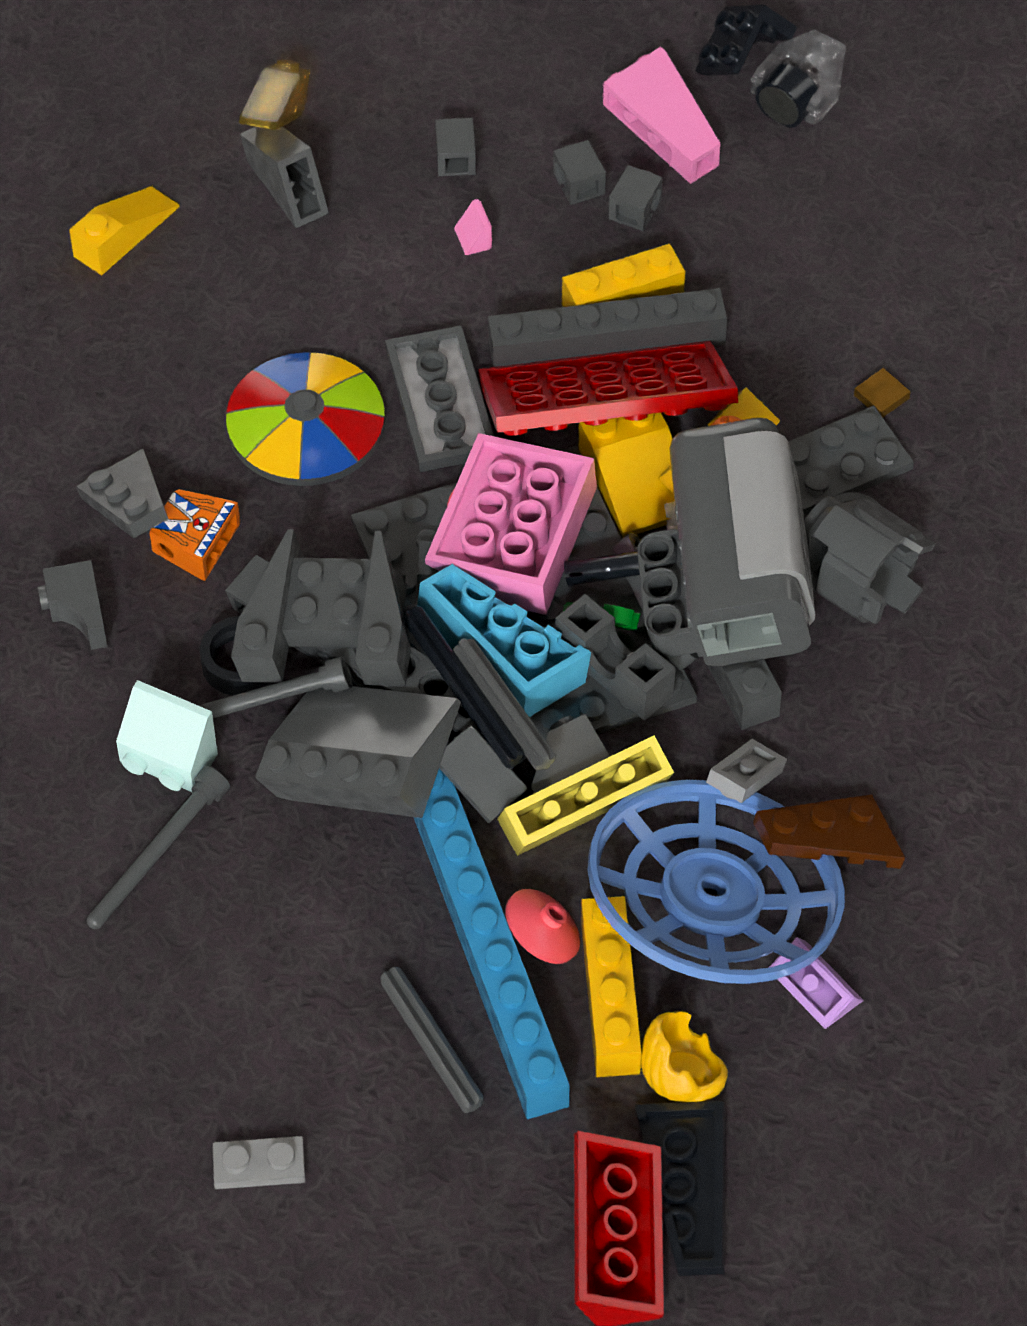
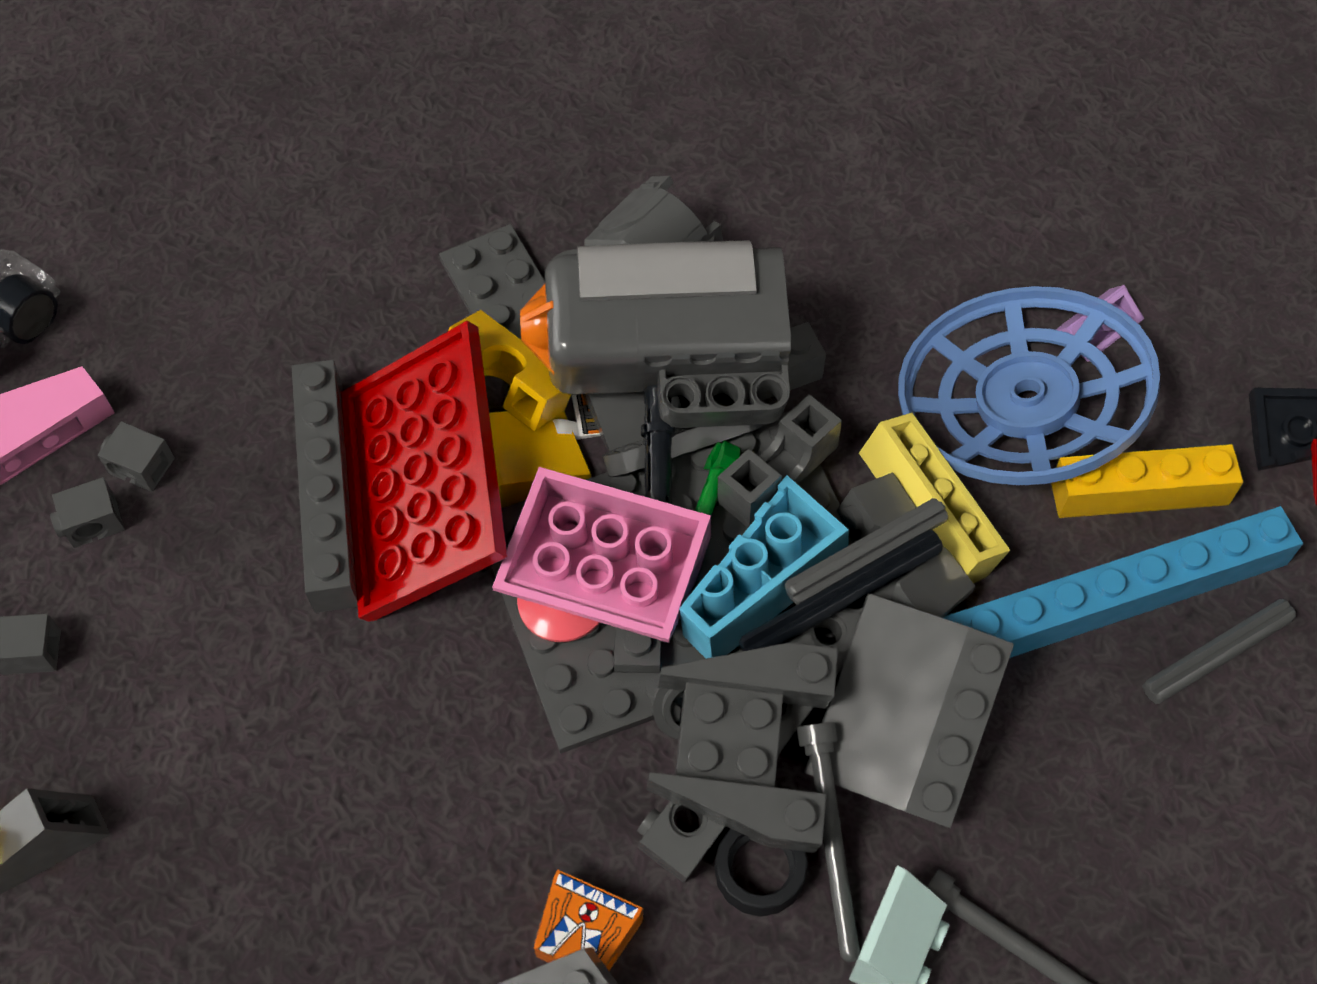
camera: 90 degrees left, 5 degrees up
(305, 419) = (411, 810): dish -> none
(438, 395) = (396, 656): dark grey piece -> none
(474, 229) = (152, 623): bright pink slope -> none
(542, 926) = (1085, 542): coral dish -> none
(638, 275) = (264, 467): yellow arch -> none
(680, 1061) = (1224, 417): yellow piece -> none
(746, 771) = (888, 362): light grey plate -> none
(833, 827) = (946, 298): reddish brown wing -> none
(882, 392) = (419, 249): pearl gold tile -> none

